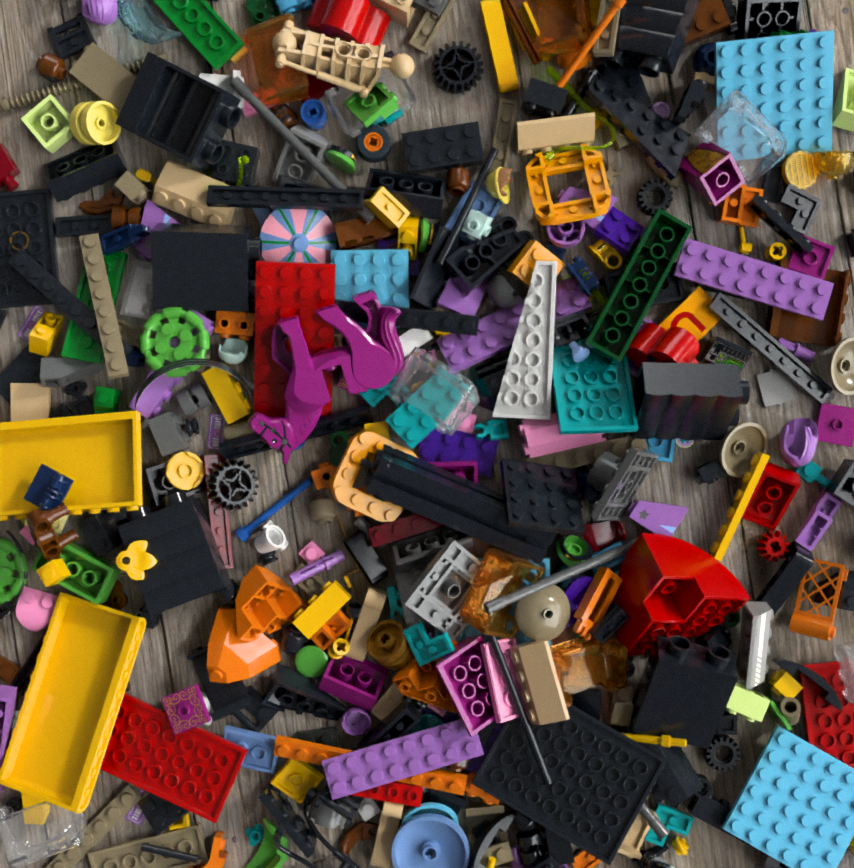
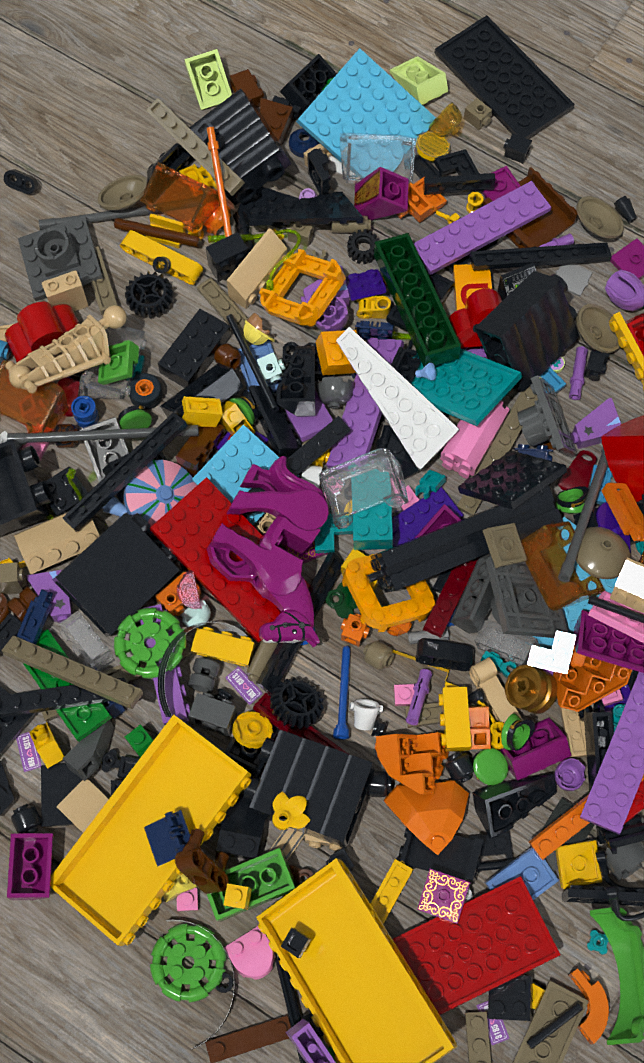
camera: 50 degrees left, 20 degrees down
(61, 638) = (295, 942): none -> black plate
(161, 665) = (390, 889): none -> yellow plate
(238, 332) = (188, 592): none -> clear pink tile
(347, 662) = (516, 732): none -> bright green piece
(474, 542) = (504, 545): none -> dark tan plate
(483, 54) = (156, 264): none -> black bush
(694, 461) = (577, 378): none -> medium lavender pin

